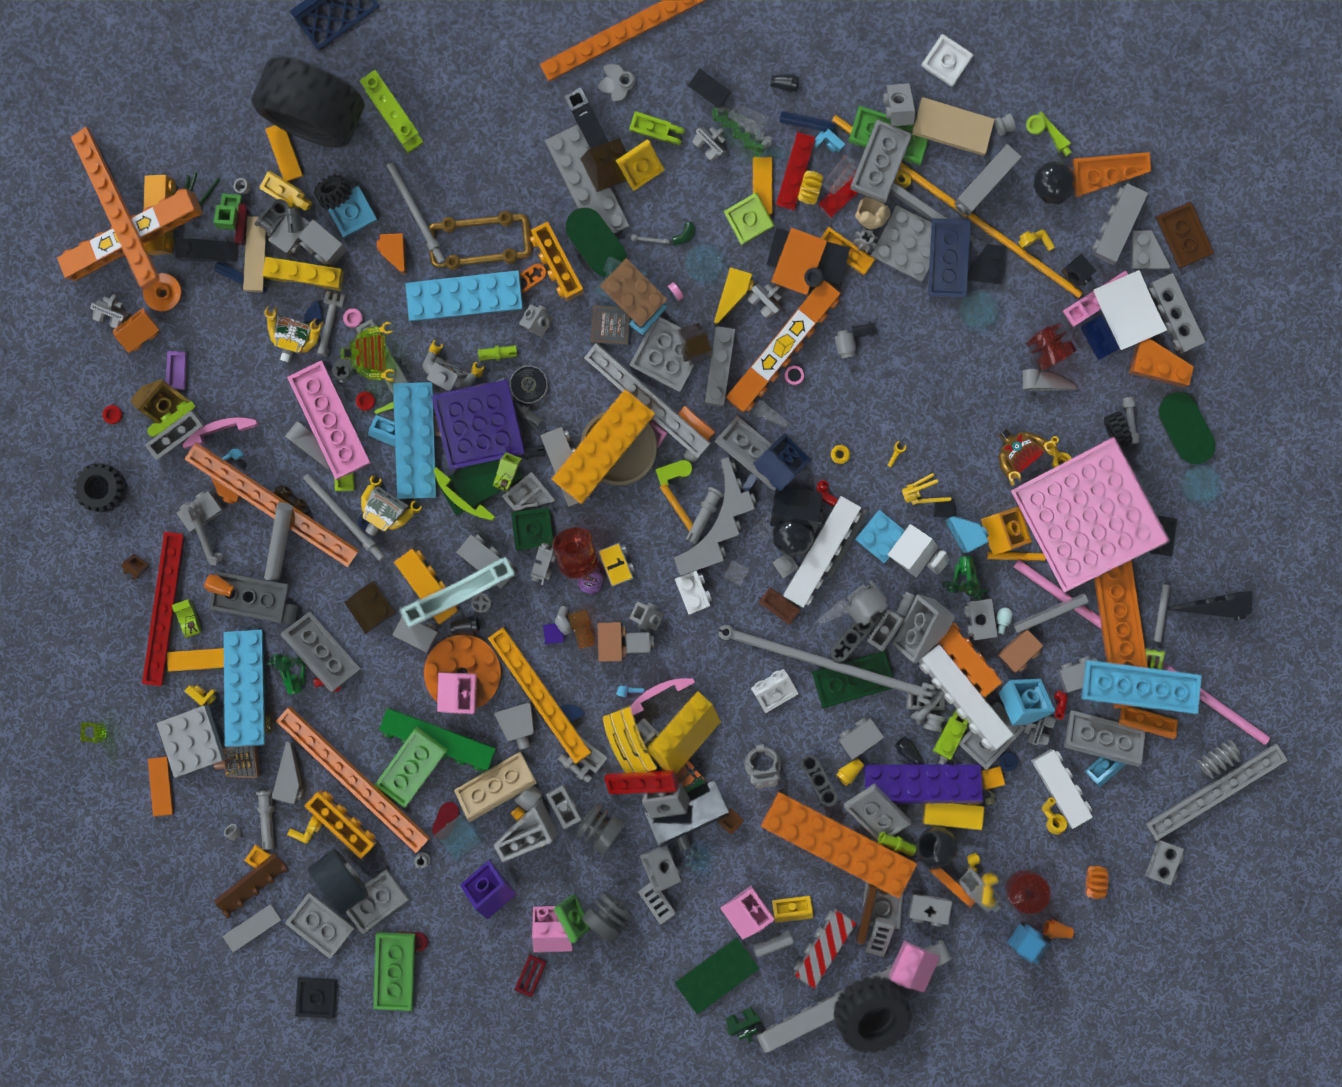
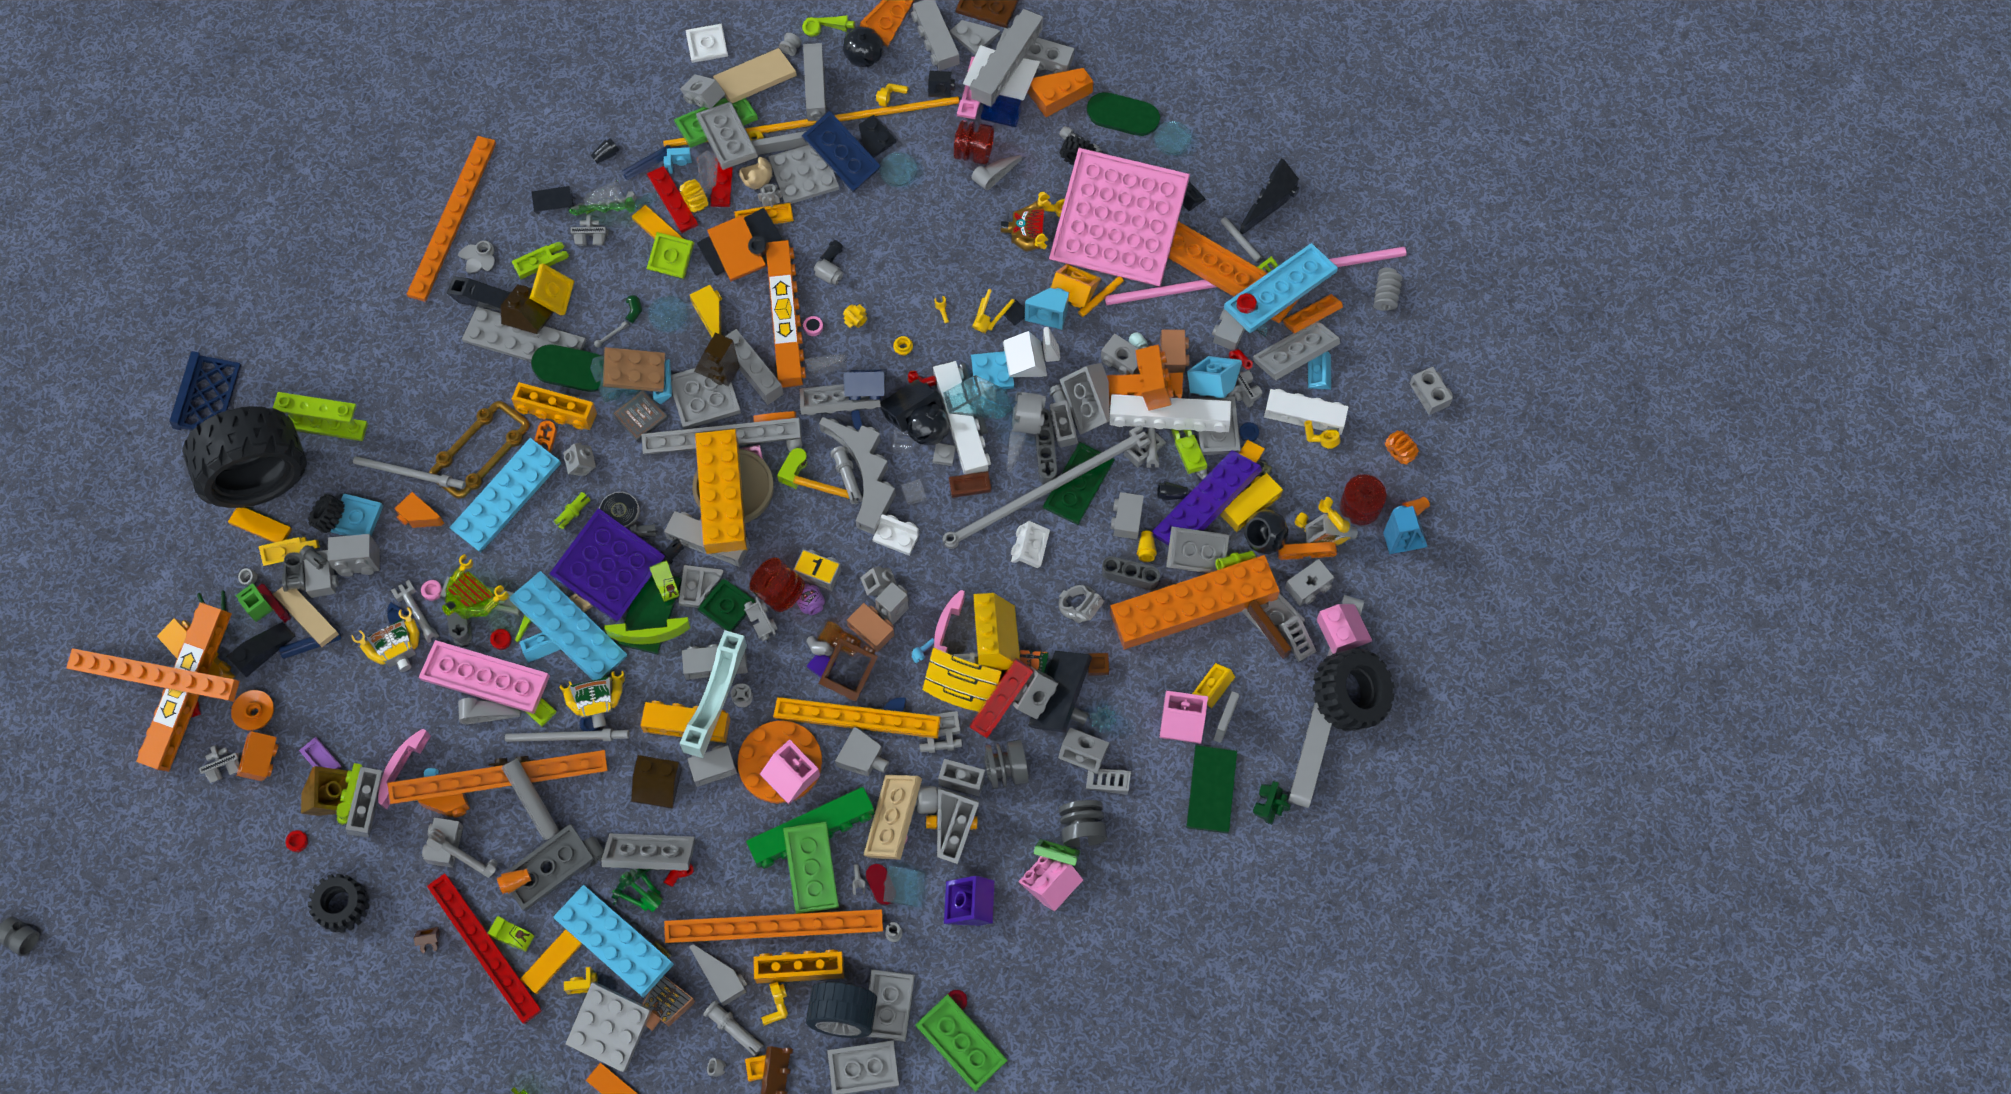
camera: 45 degrees left, 20 degrees down
(301, 272) = (342, 601): yellow arch -> none
(435, 801) = (858, 882): none -> light grey hand
(446, 374) = (543, 557): light grey torso -> none
(466, 626) = (746, 724): black cone -> none
(536, 960) = (1078, 952): dark red tile -> none
(549, 668) = (838, 687): none -> reddish brown window
(675, 291) = (667, 348): bright pink tile -> none
(759, 293) = (748, 295): light grey hips -> none
(824, 948) = (1266, 685): brick -> none
(829, 398) = (855, 316): none -> yellow gear
(843, 555) = (978, 399): none -> clear light blue wedge
(934, 722) = (1167, 454): light grey wheel -> none
(971, 587) = (1089, 334): plant -> none
(977, 666) = (1154, 377): none -> orange wedge
(1051, 613) = (1165, 305): light grey tile -> none
(1101, 677) = (1246, 303): none -> red tile
(1144, 304) = (1006, 57): none -> light grey brick
(1216, 792) = (1410, 315): light grey plate -> none

